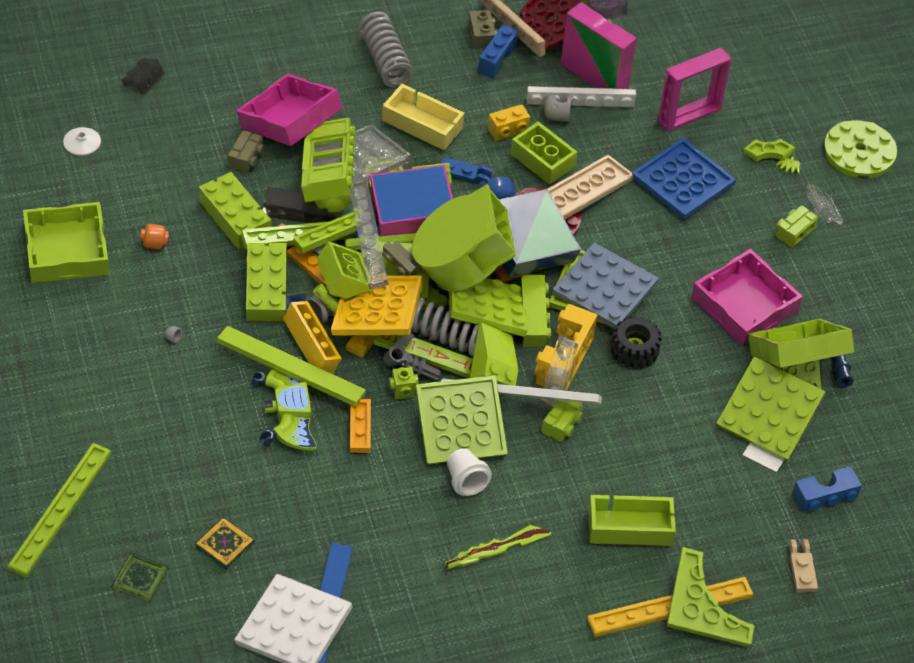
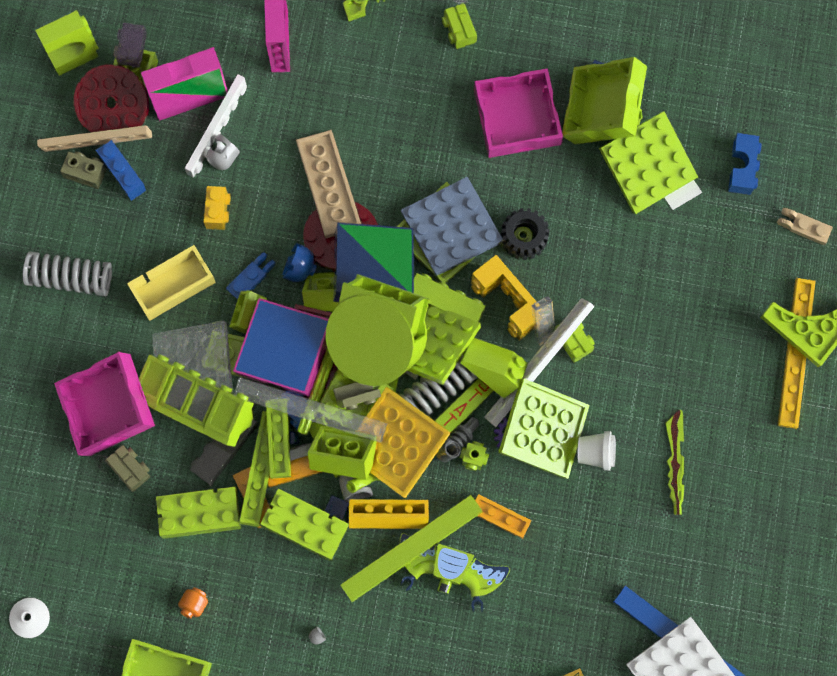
camera: 60 degrees left, 25 degrees up
(543, 153) = (271, 196): lime brick -> none
(632, 520) = (708, 340): lime piece -> none
(683, 178) = (357, 90): blue plate -> none

